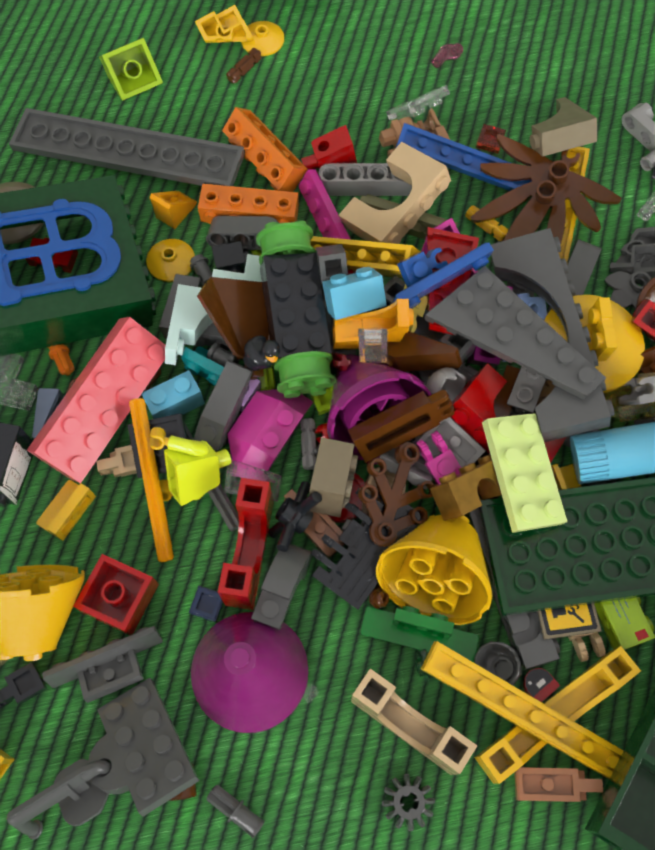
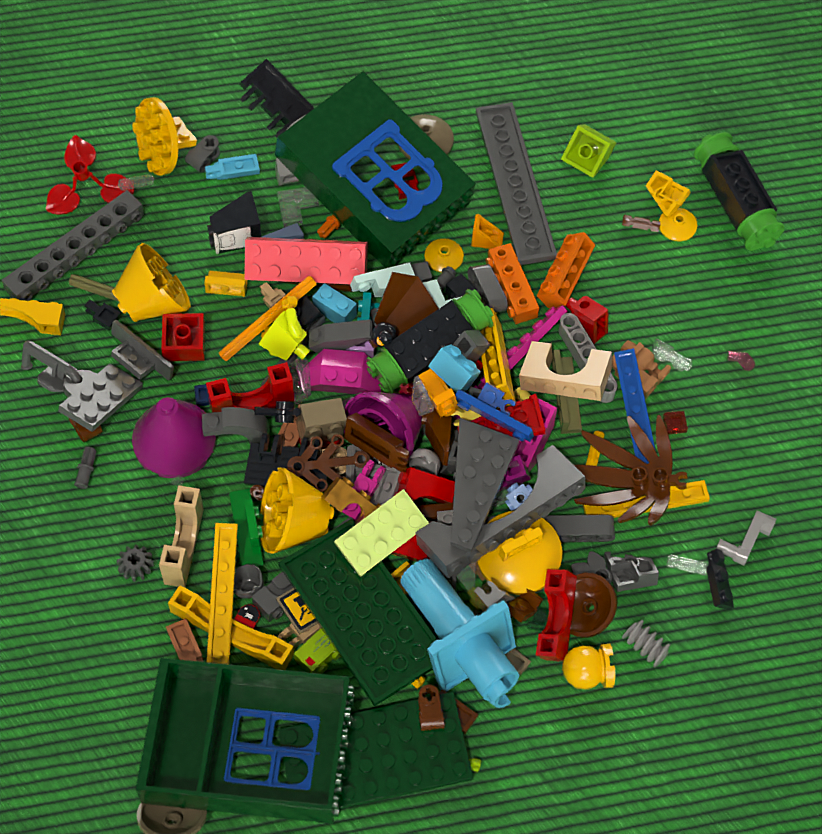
camera: 60 degrees right, 5 degrees down
(565, 130) = (701, 465): dark tan arch -> none

